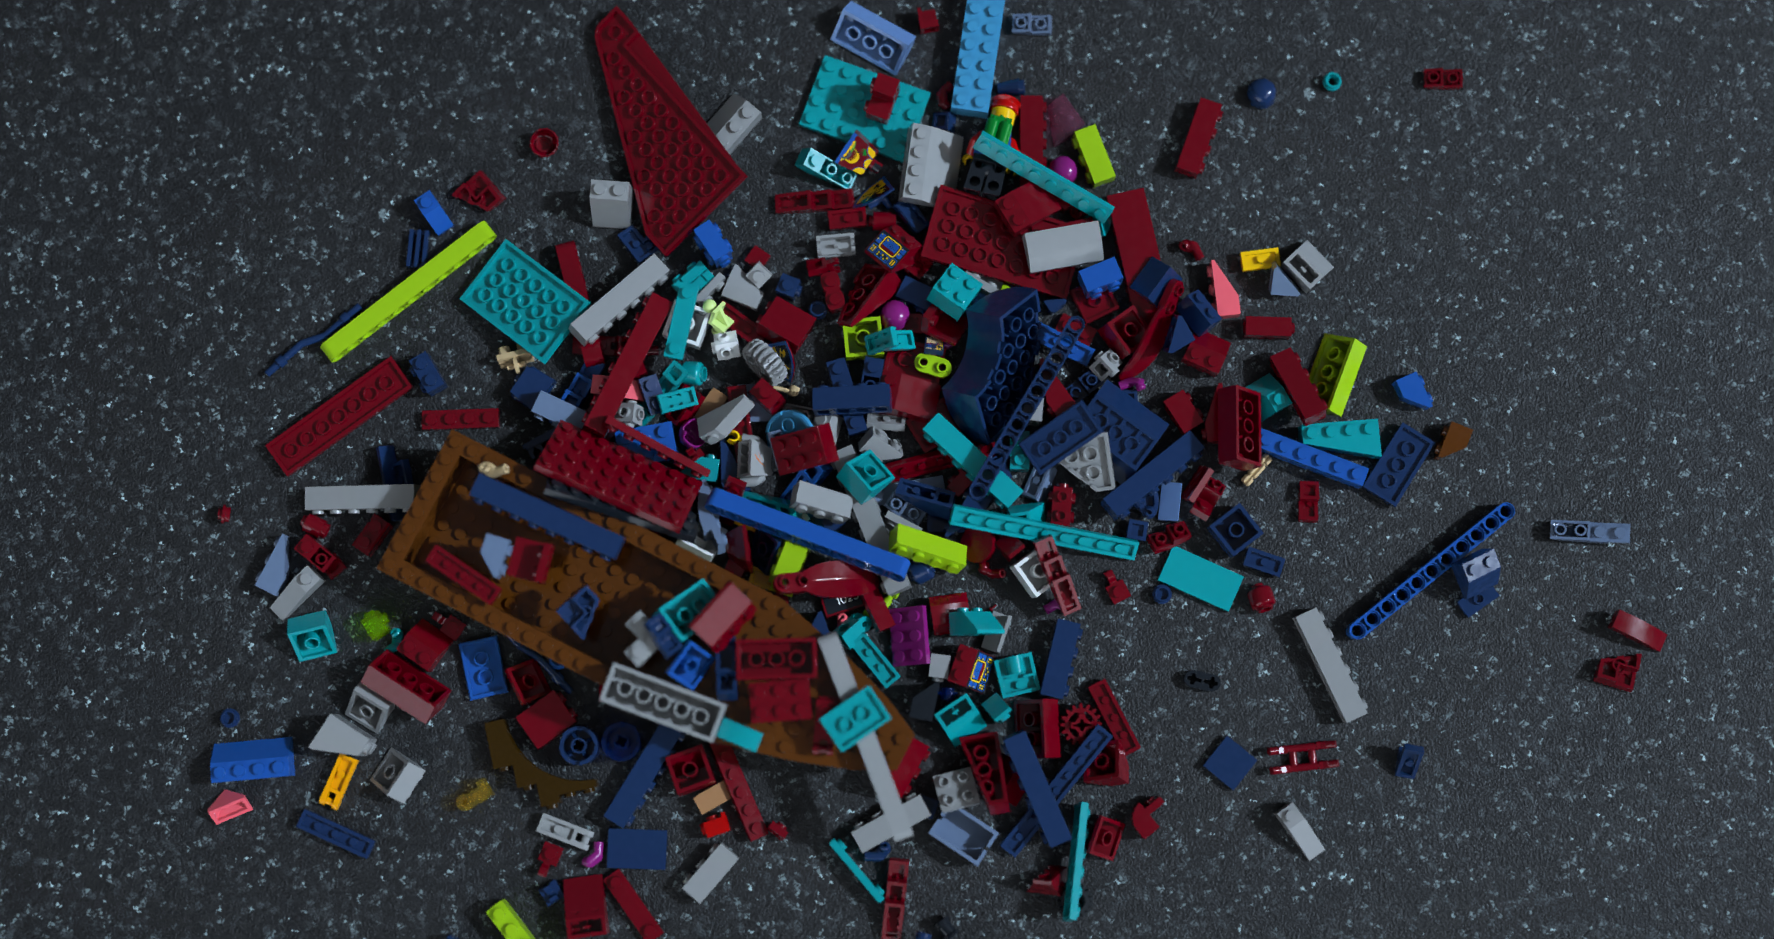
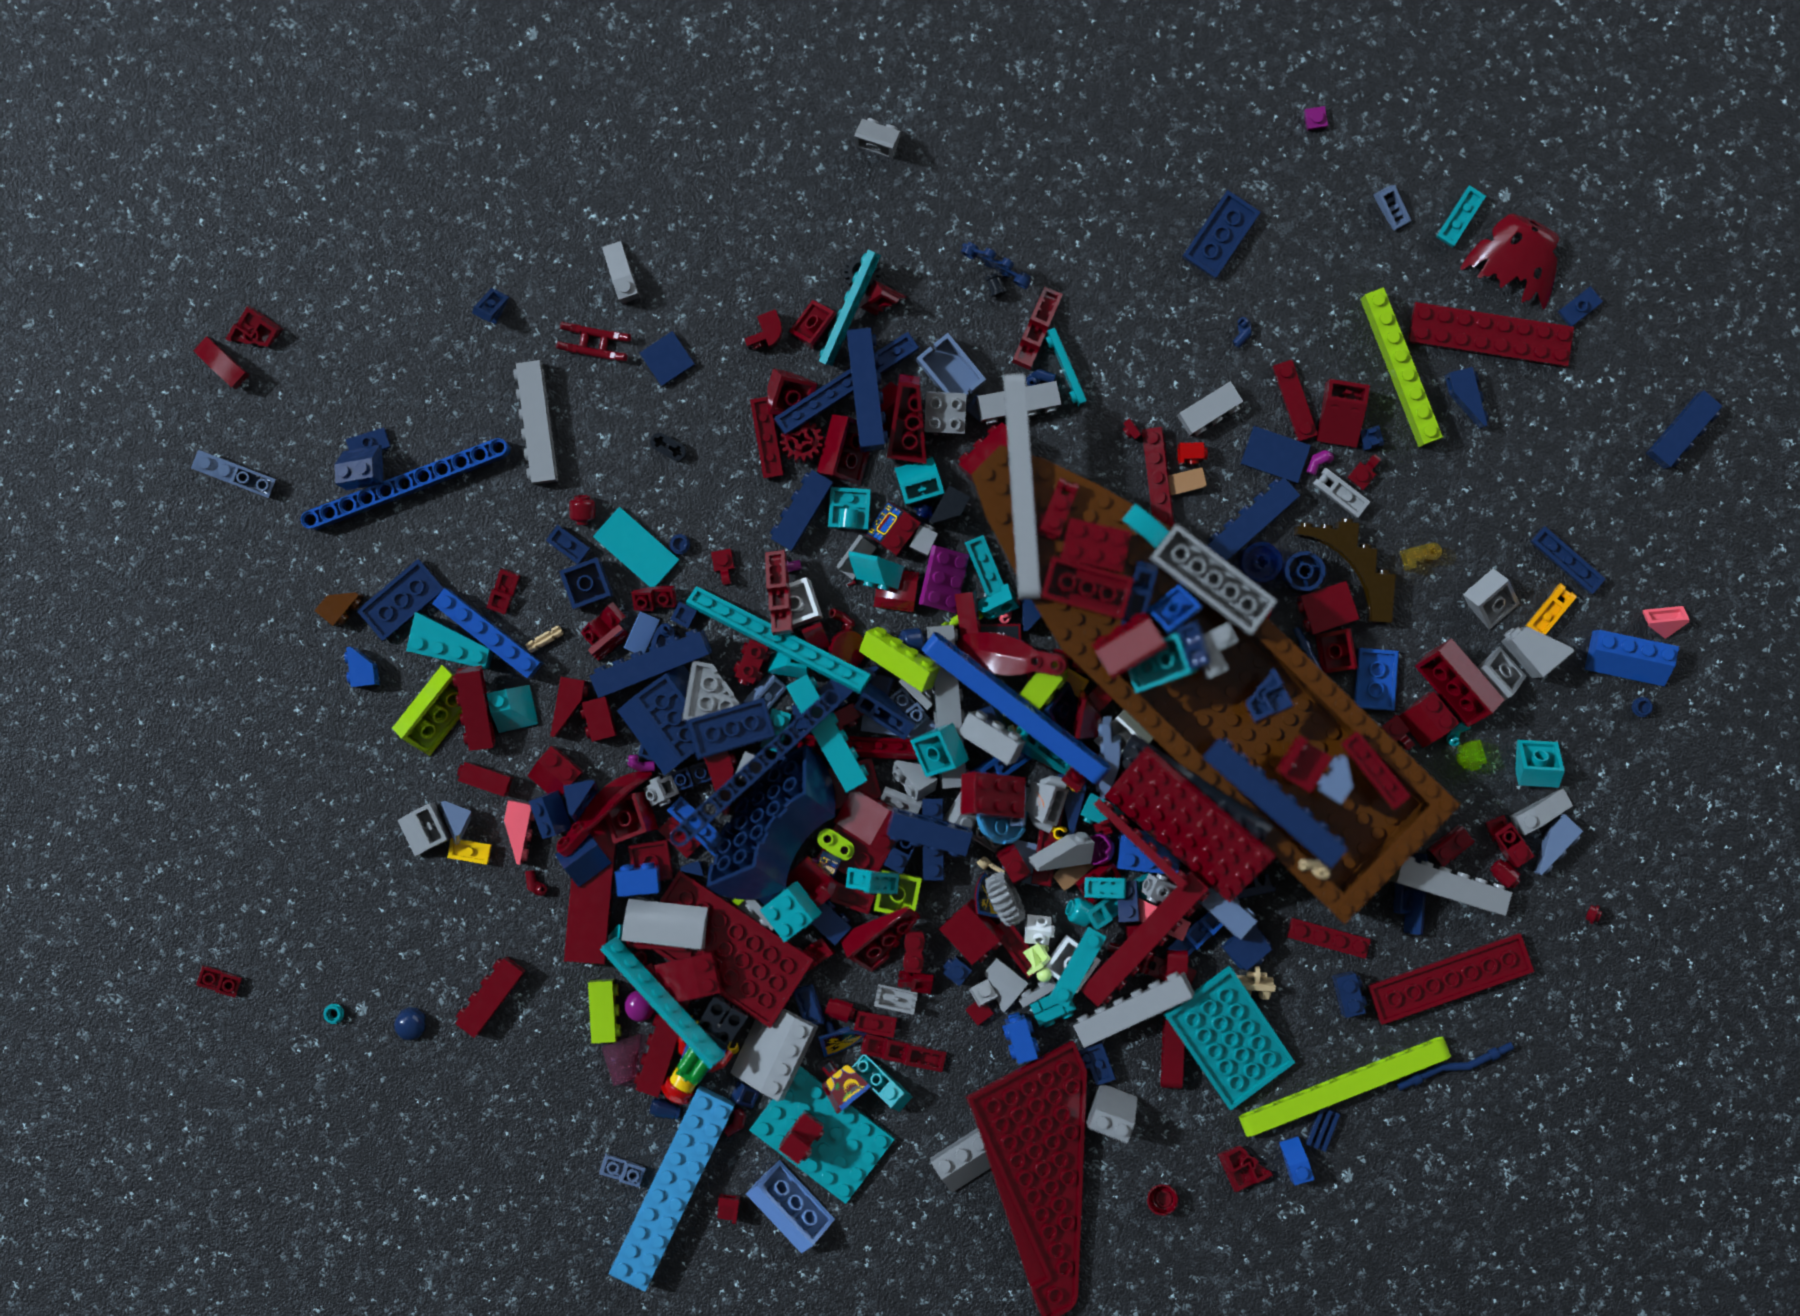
camera: 160 degrees left, 5 degrees up
(690, 770) = (1201, 513): dark red slope -> none
(817, 309) = (934, 938): dark blue plate -> none
(855, 718) = (1027, 504): teal plate -> none
(894, 249) = (838, 975): slope -> none
(894, 314) = (858, 907): magenta hair -> none
(996, 708) = (880, 480): teal slope -> none
(1239, 427) = (548, 683): dark red brick -> none

